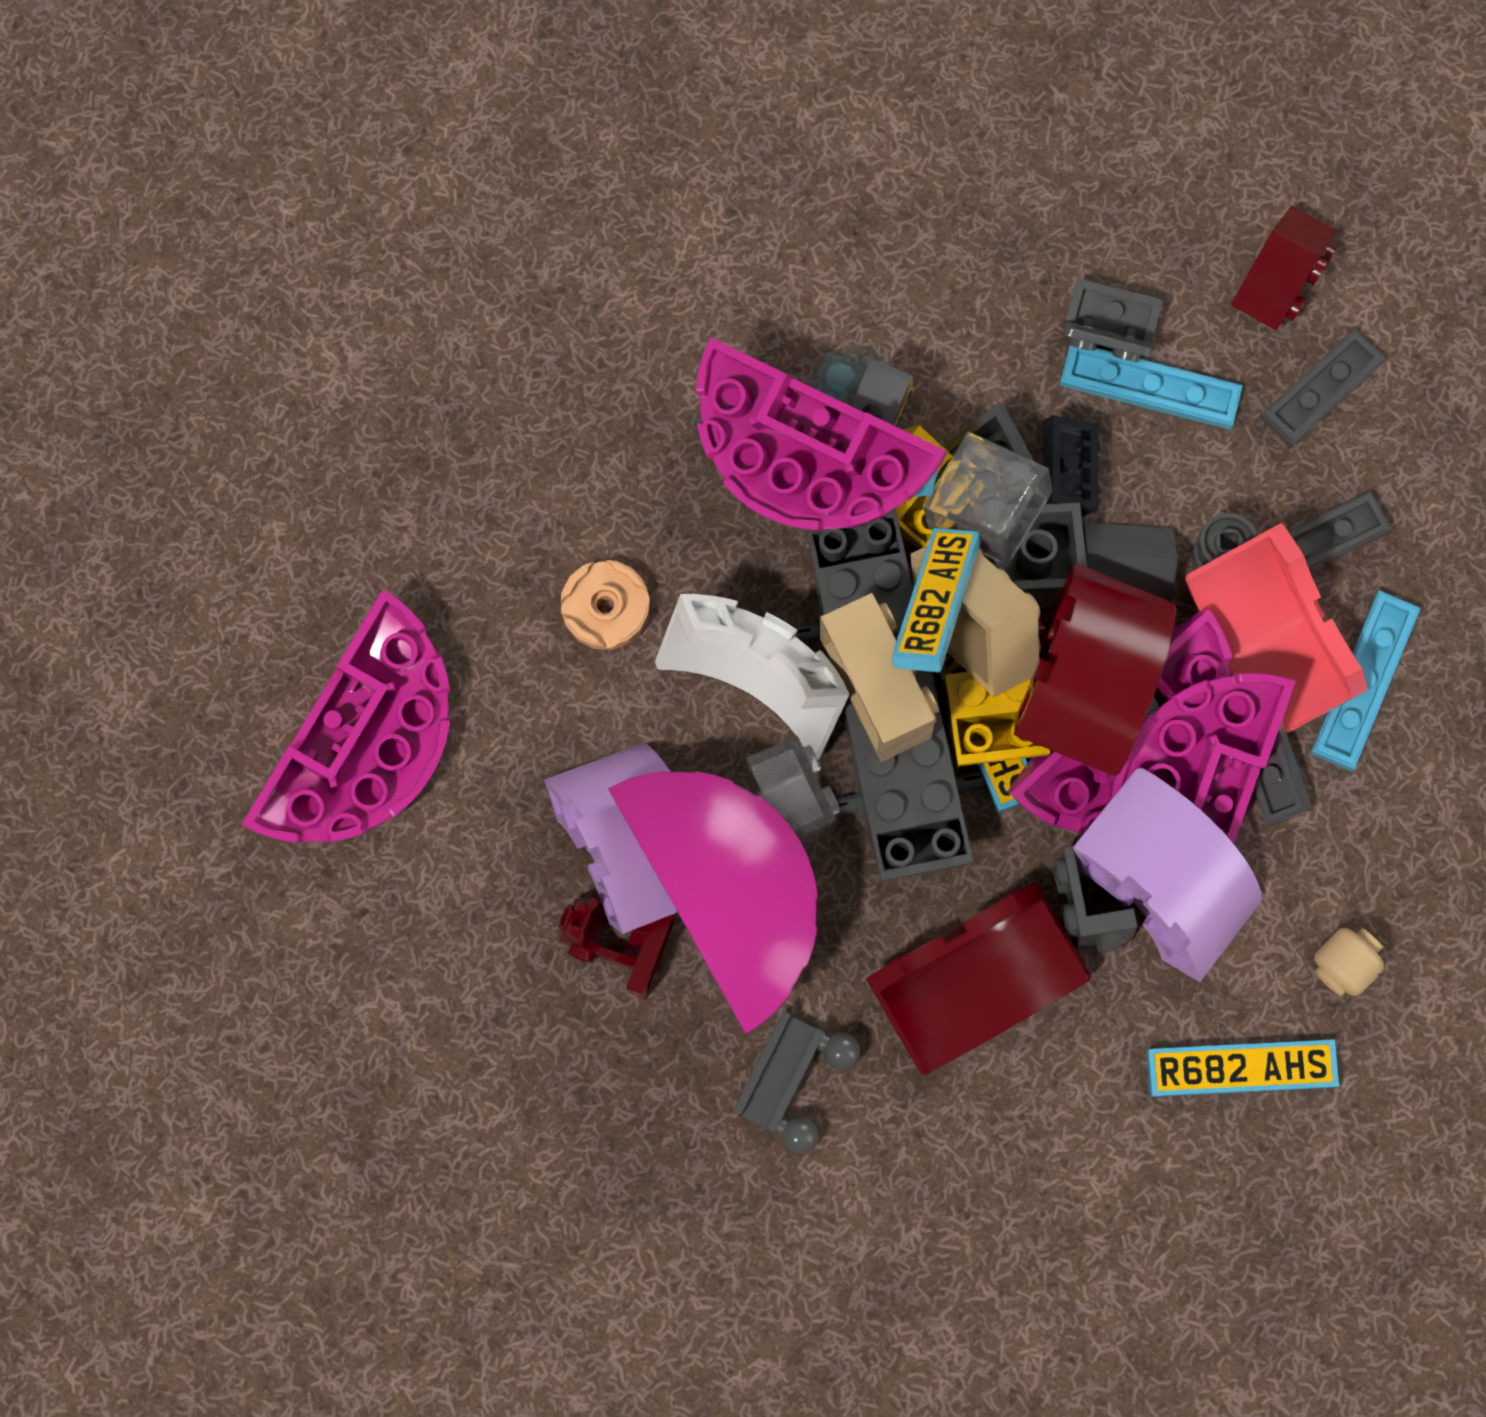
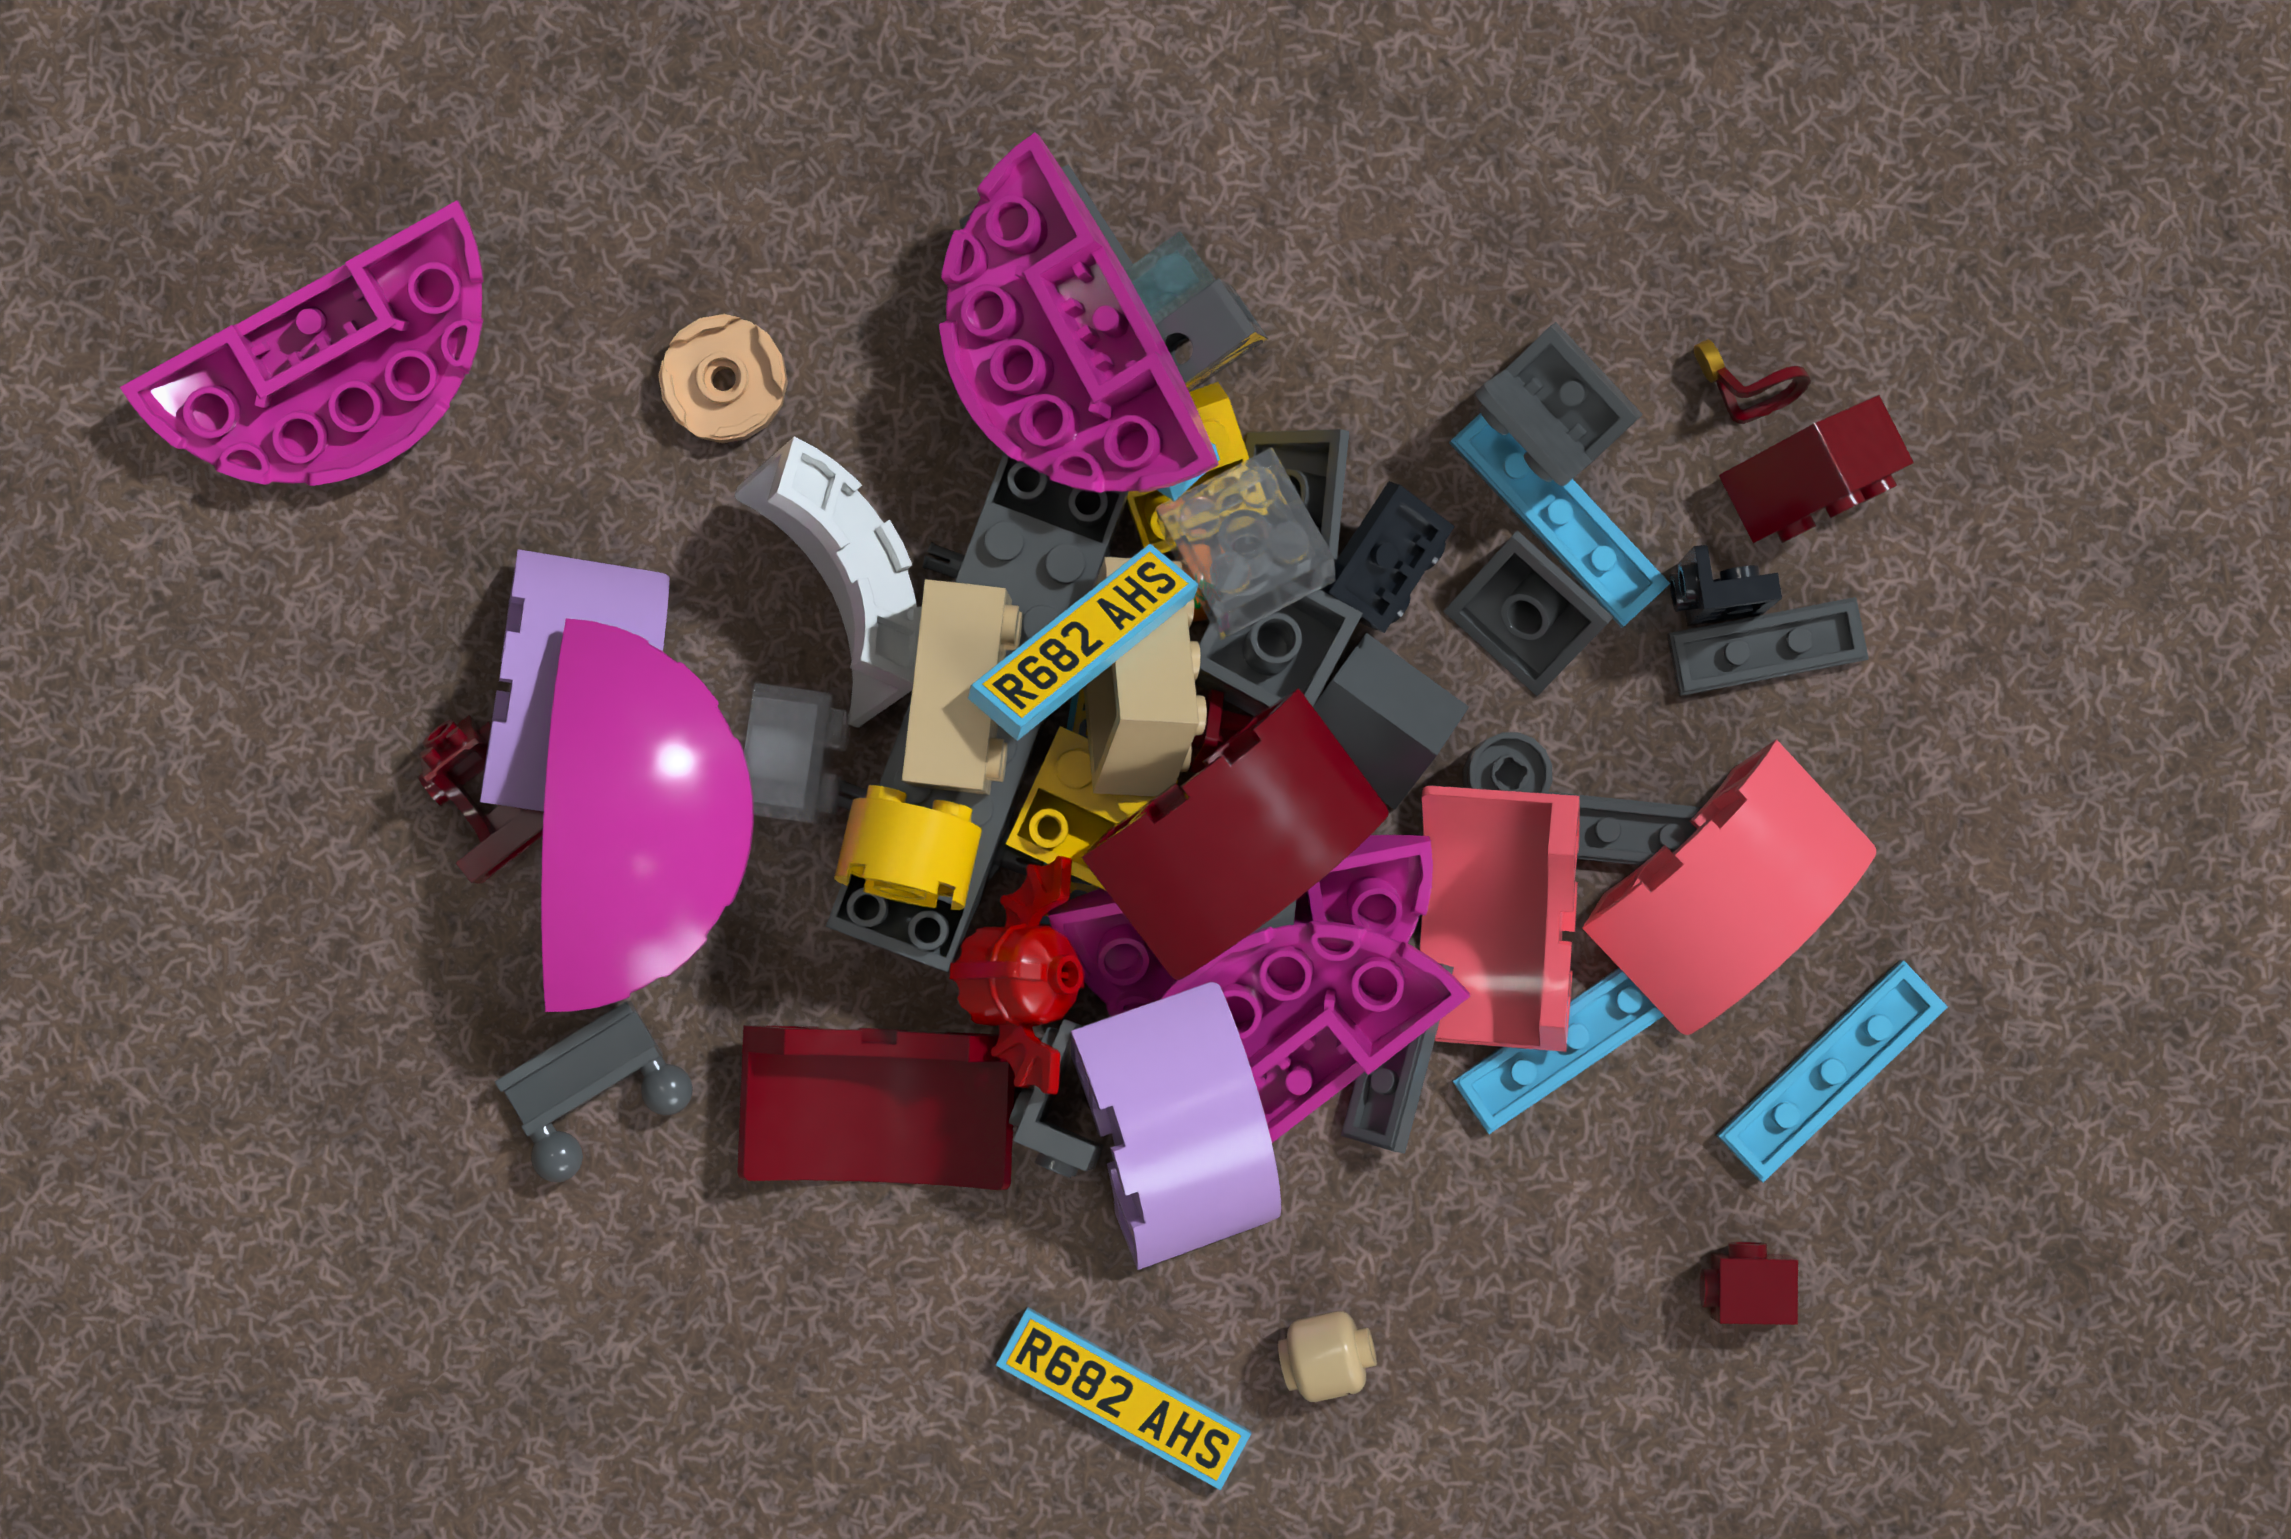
camera: 30 degrees right, 10 degrees up
(908, 792) = (909, 849): none -> yellow brick
(1021, 835) = (1023, 975): none -> red helmet
(1173, 448) = (1527, 613): none -> dark grey slope
(1185, 249) = (1729, 386): none -> dark red piece
(1272, 373) = (1735, 595): none -> black bracket
(1404, 537) = (1736, 894): none -> coral panel

